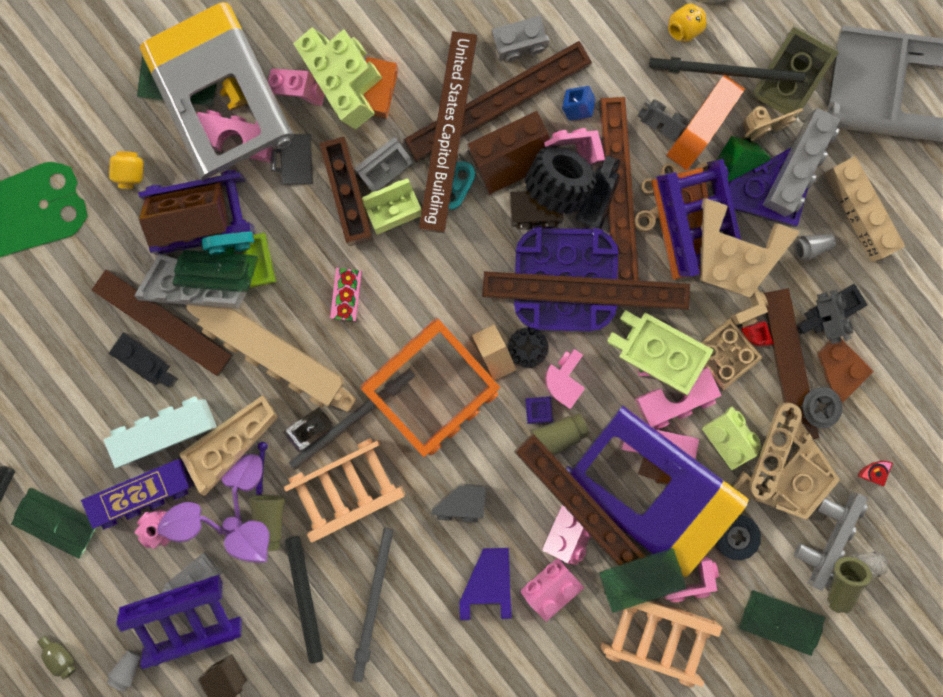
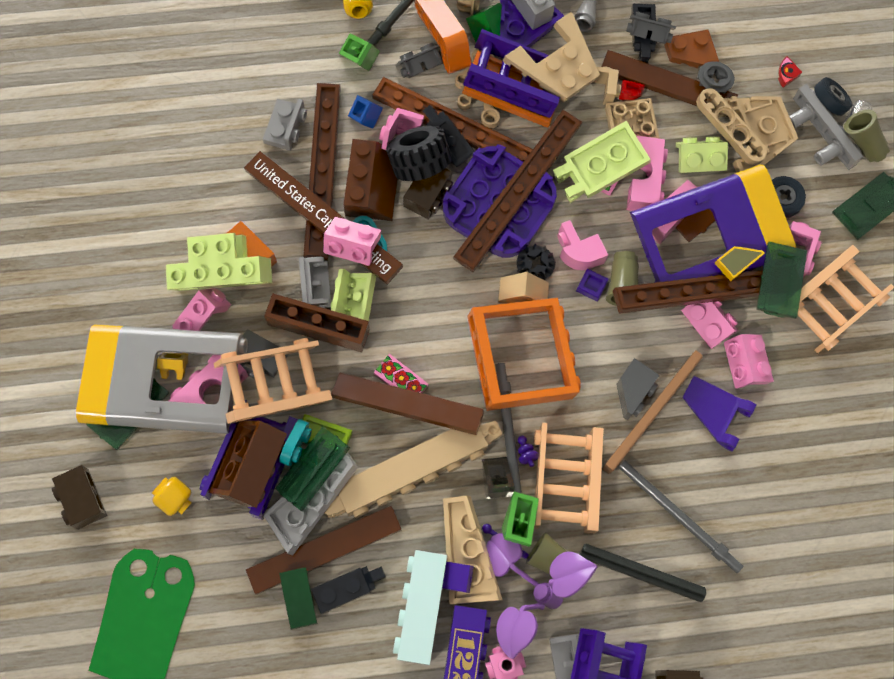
camera: 65 degrees left, 15 degrees down
(79, 94) = (78, 497): none -> dark brown brick
(107, 327) = (298, 598): none -> dark green slope
(201, 447) = (457, 577): none -> dark purple tile
(241, 197) = (266, 405): none -> light nougat fence
(276, 472) = (520, 519): none -> bright green slope
(323, 315) = (408, 403): none -> reddish brown tile
(344, 446) = (528, 455): none -> dark purple hair
(436, 172) = (351, 240): none -> bright pink bracket
(449, 530) = (652, 412): none -> medium nougat tile
(634, 59) = (359, 51): none -> bright green slope
(635, 530) = (737, 260): none -> olive tile
(872, 530) = (833, 96): none -> black bush

